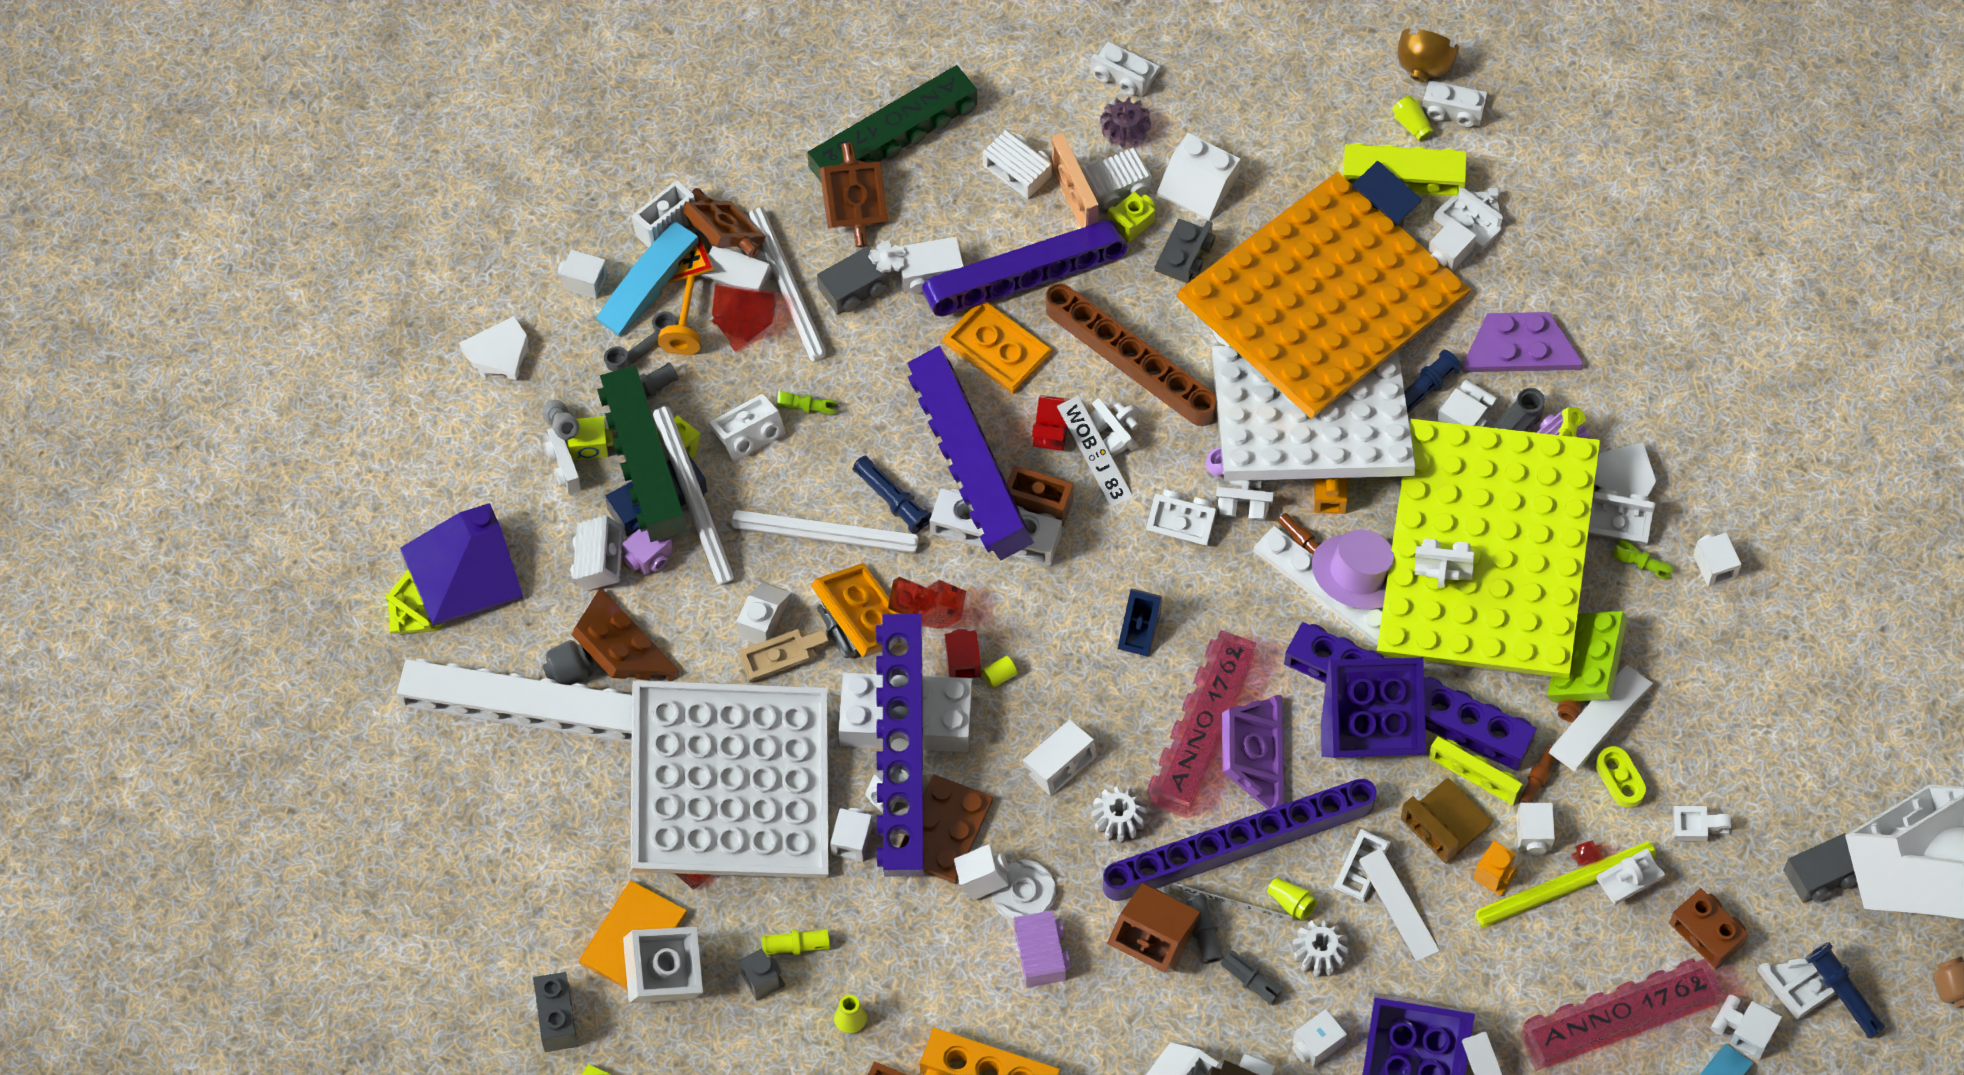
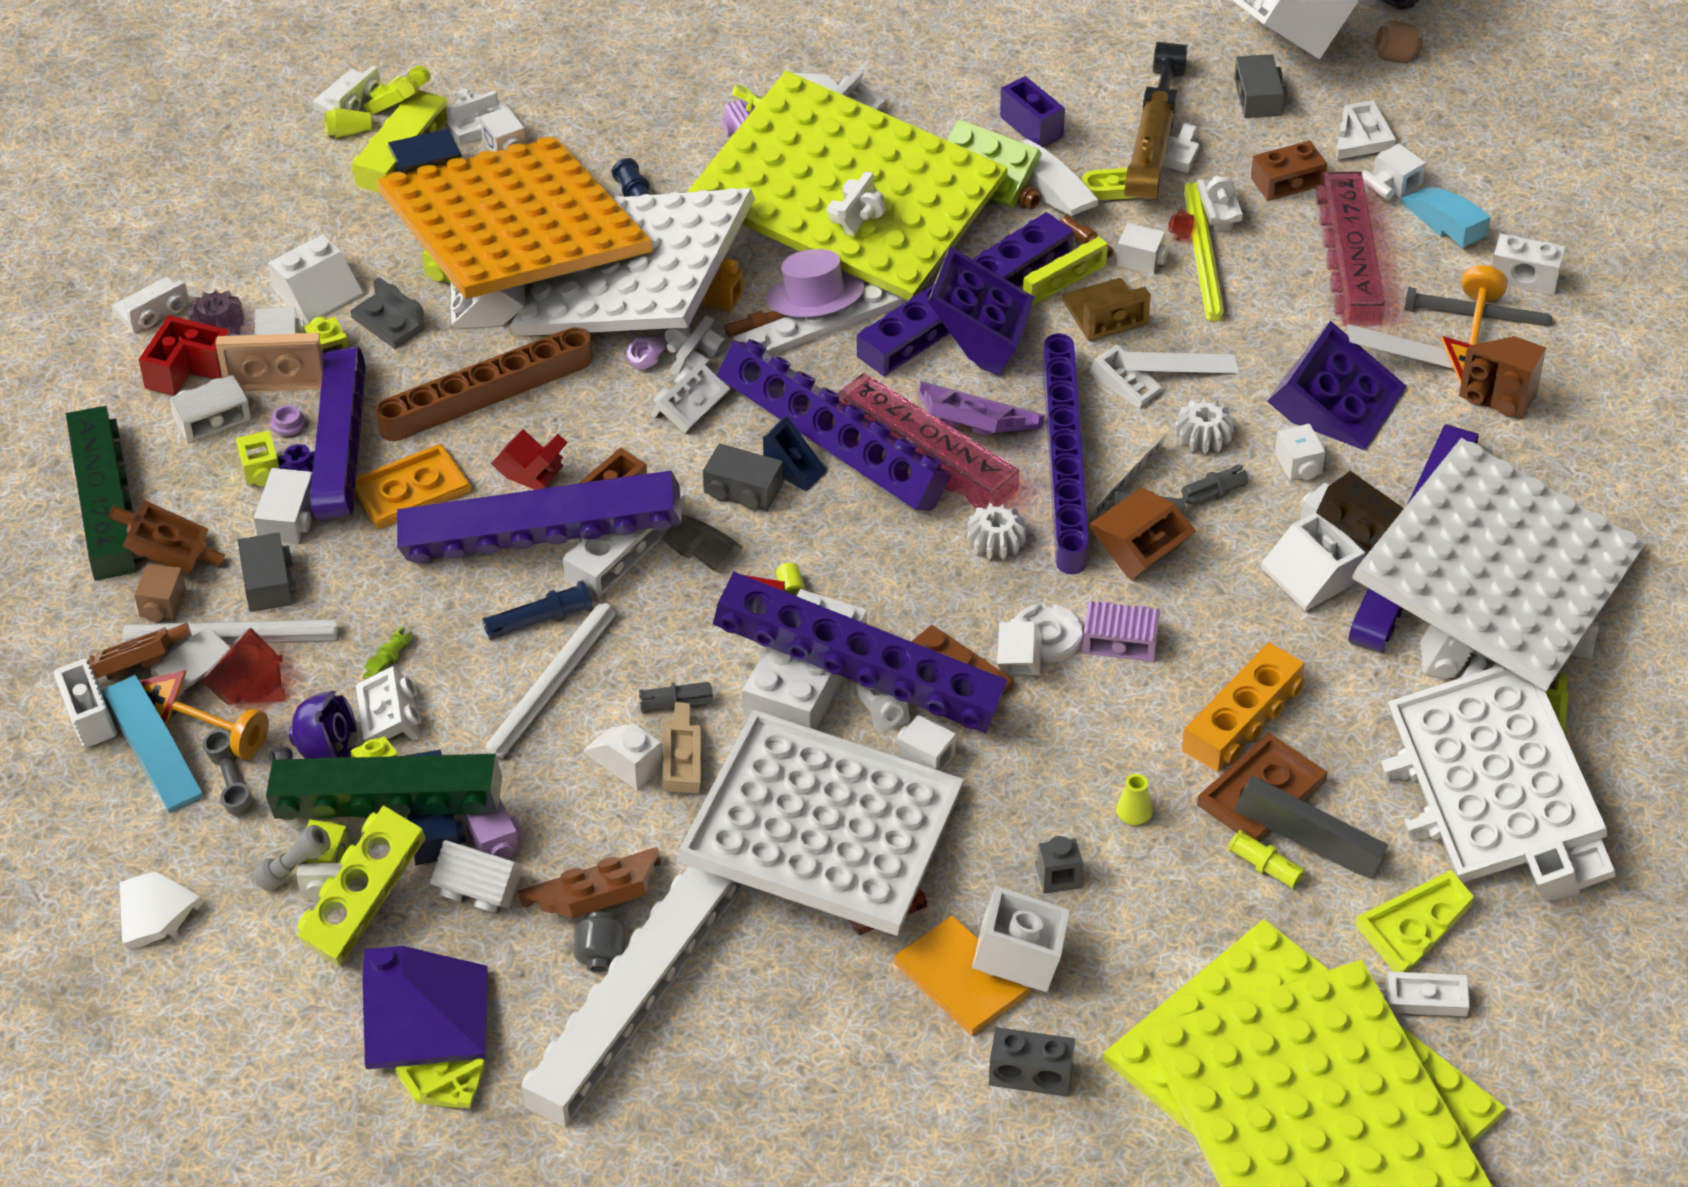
camera: 70 degrees left, 15 degrees down
(582, 273) = (107, 801): white brick -> none
(589, 484) = (338, 940): none -> neon yellow brick
(693, 495) = (512, 770): white axle -> none
(699, 387) = (320, 724): none -> dark purple cylinder
(795, 942) = (1030, 830): neon yellow pin -> none
(801, 217) = (160, 592): none -> medium nougat brick
(856, 605) = (666, 666): light orange tile -> none
(887, 257) = (262, 526): white plant -> none
(938, 603) = (691, 607): clear red brick -> none
(974, 215) = (257, 466): none -> neon yellow brick
(976, 247) = (297, 458): none -> dark purple gear
(1016, 588) = (703, 542): none -> clear smoke slope
(1031, 226) = (287, 420): none -> lavender plate
(1060, 757) = (913, 557): white hinge -> none
(1062, 112) = (180, 350): none -> red brick
(1094, 451) = (582, 435): white sticker -> none
(1101, 592) = (743, 477): none -> dark grey brick
(1120, 438) = (558, 413): white hips -> none
(1186, 641) = (927, 477): none -> dark purple brick
(1294, 899) = (1142, 433): neon yellow cone -> none
(1426, 54) = (288, 88): pearl gold cylinder -> none
(1456, 138) = (397, 89): none -> neon yellow hinge
(1467, 408) = (680, 169): white brick -> none
(1496, 868) = (1175, 278): light orange brick -> none
(1520, 344) = (632, 123): medium lavender wing -> none
(1520, 418) = (706, 134): dark grey piece -> none
(1628, 553) = (901, 109): lime piece -> none
(1679, 674) = (1032, 112): none -> dark purple brick
(1716, 559) = (924, 62): white brick -> none
(1734, 786) = (1155, 123): none -> pearl gold piece
(1836, 977) = (1374, 100): dark blue pin -> none

